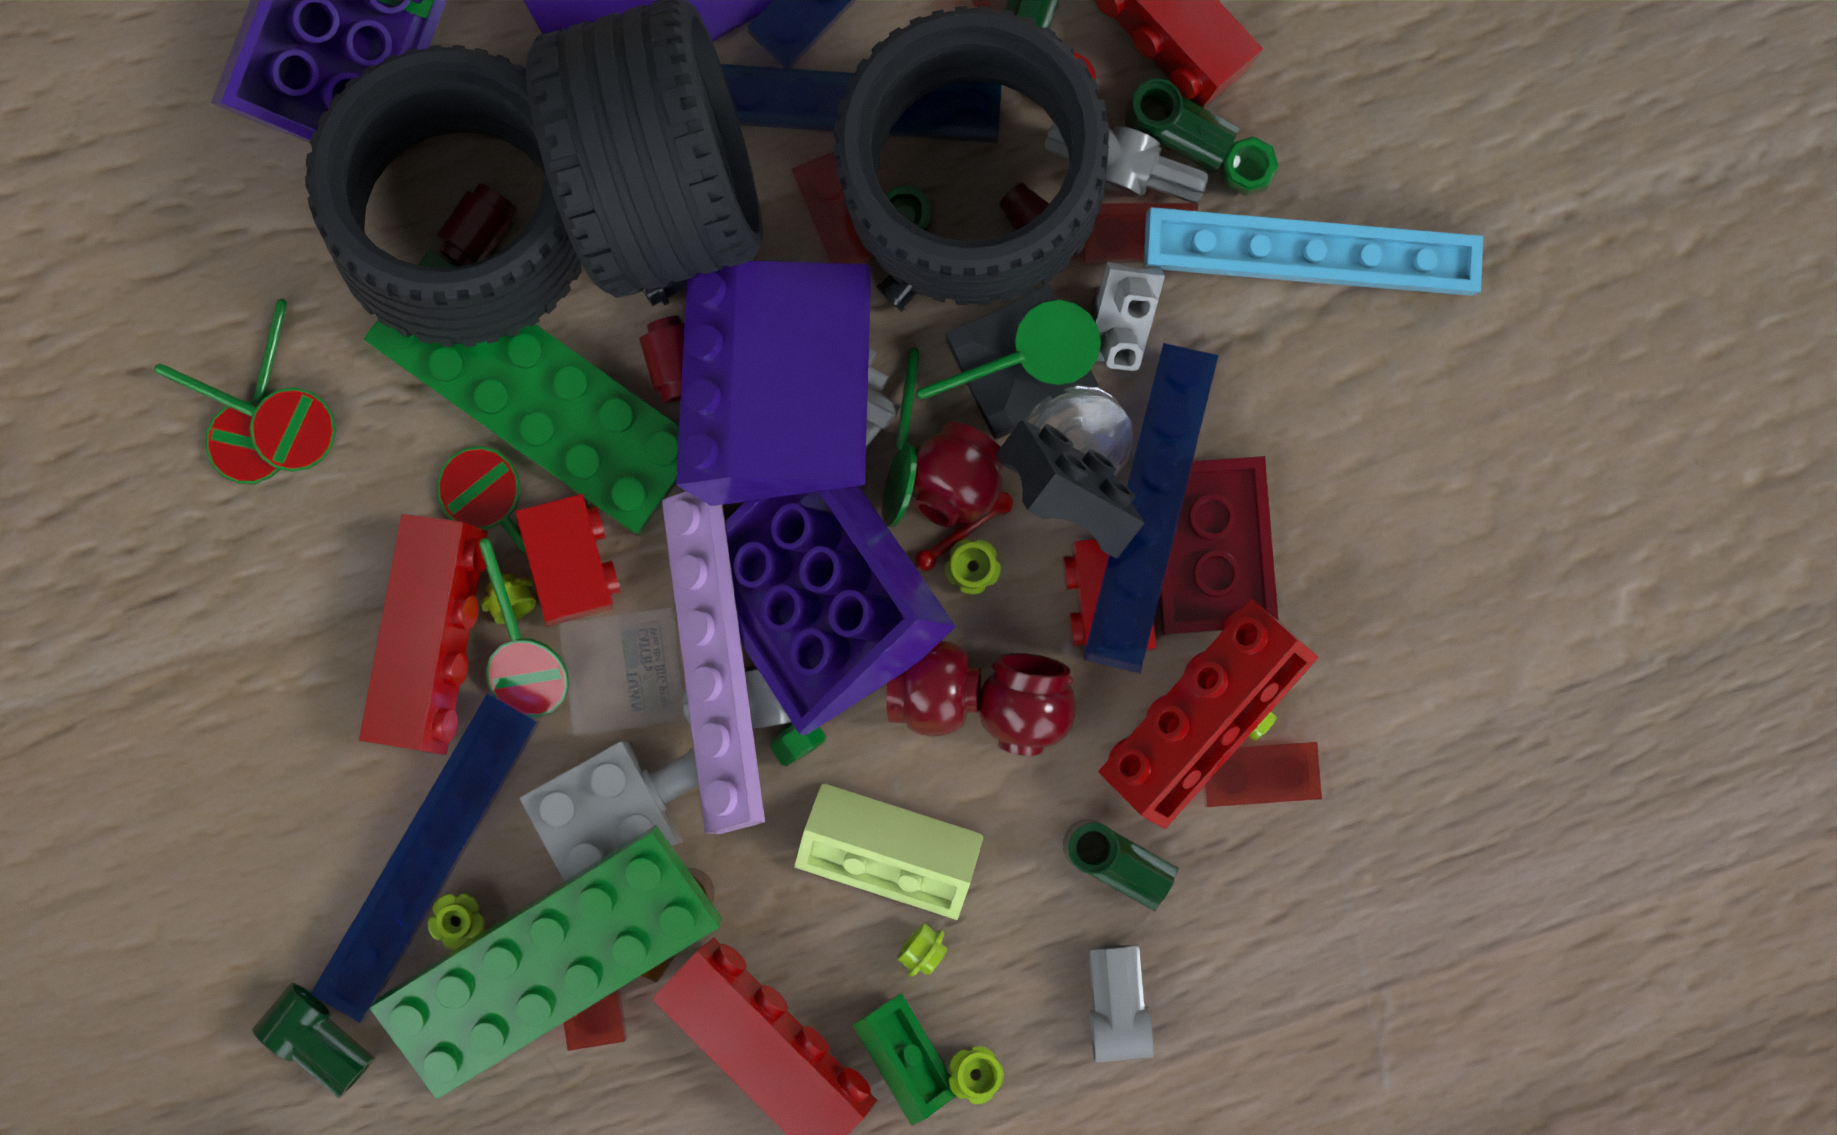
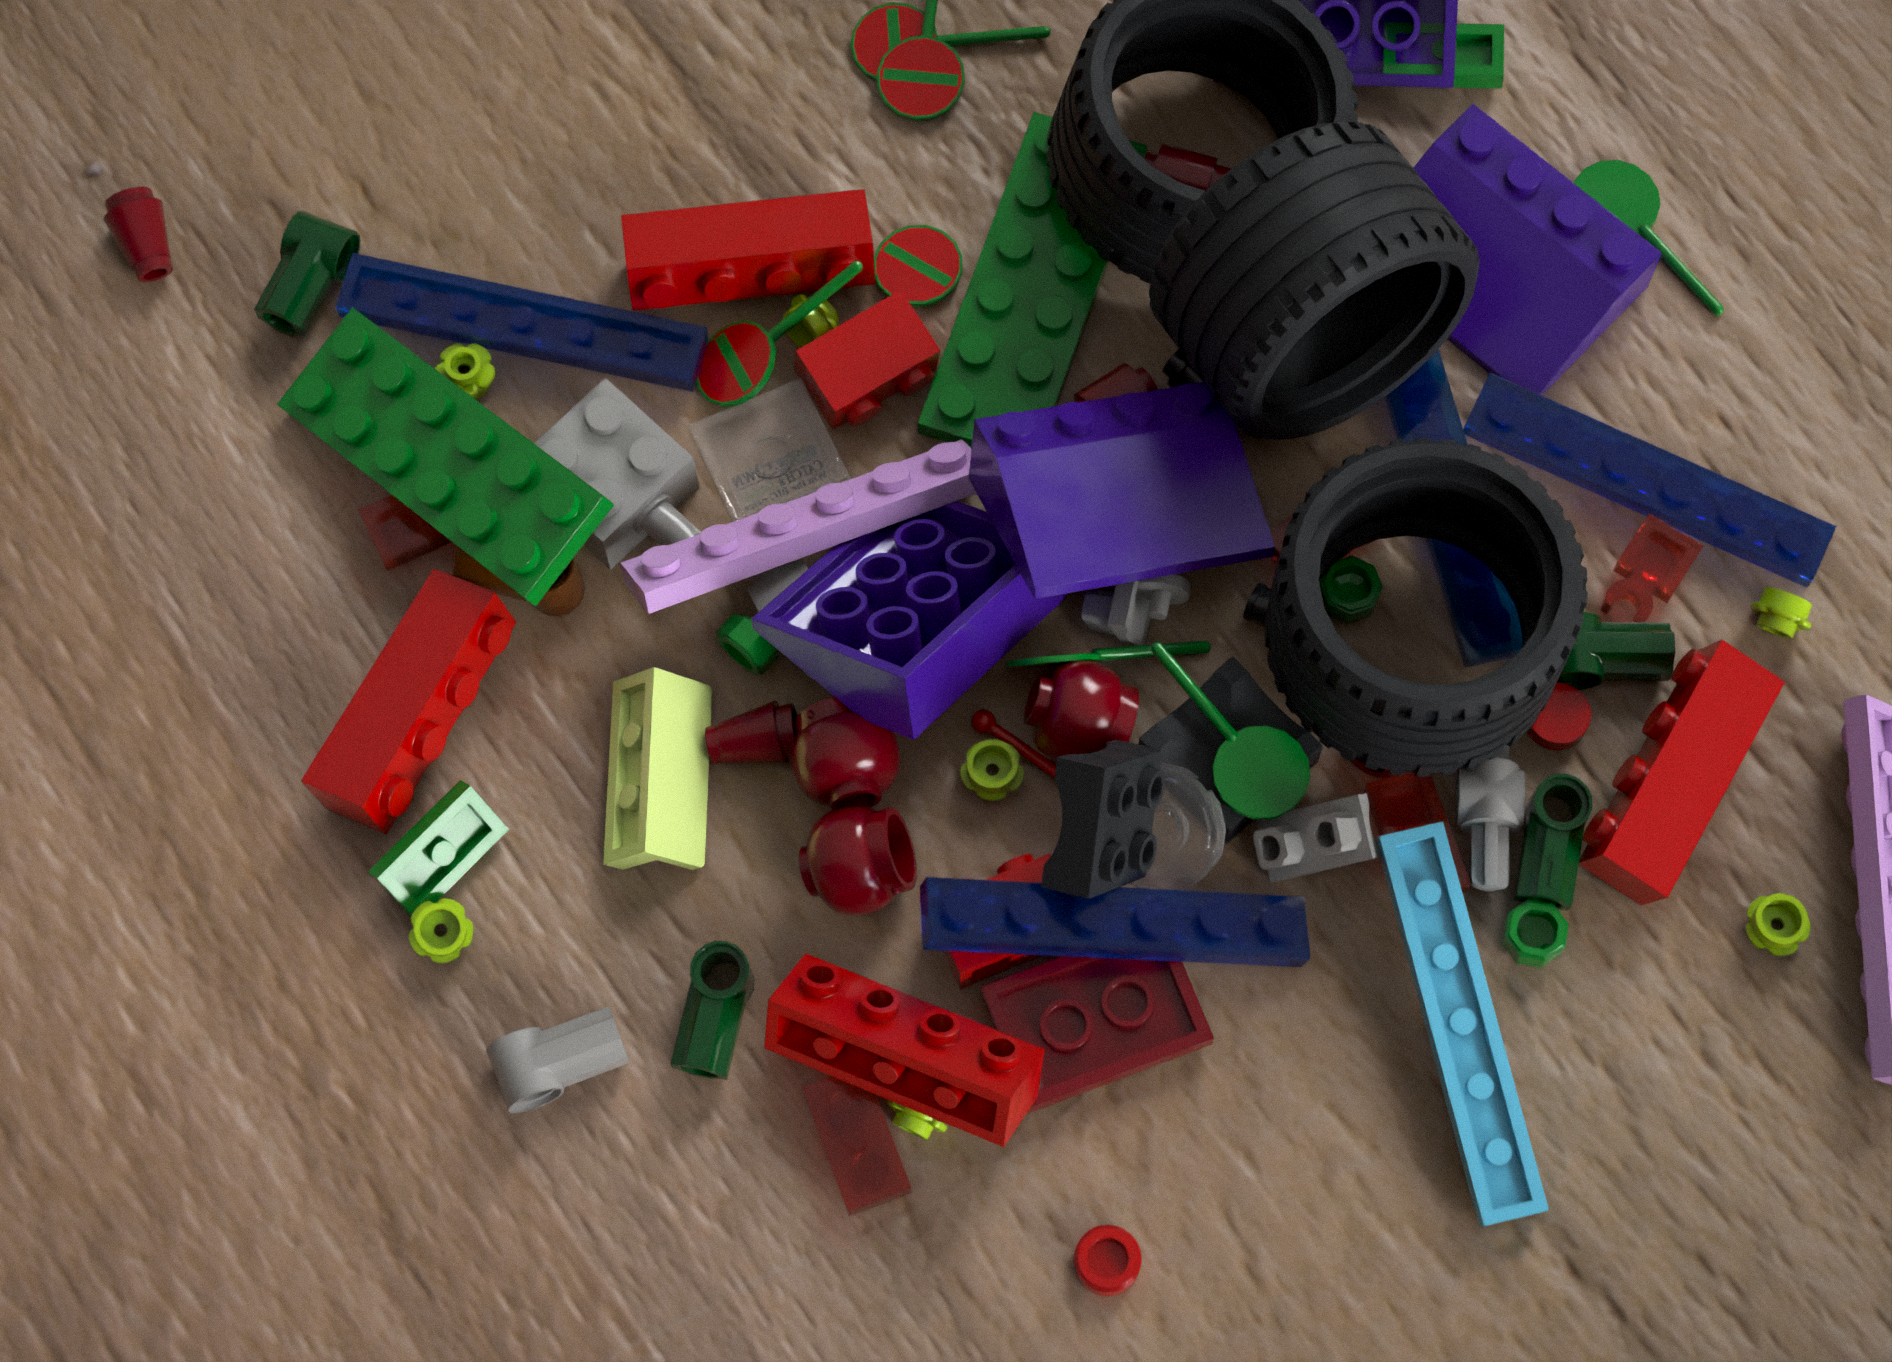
camera: 70 degrees right, 15 degrees down
(884, 757) = (754, 736): none -> dark red cone
(922, 950) = (560, 836): lime plate -> none
(1414, 600) = (1107, 1260): none -> red tile

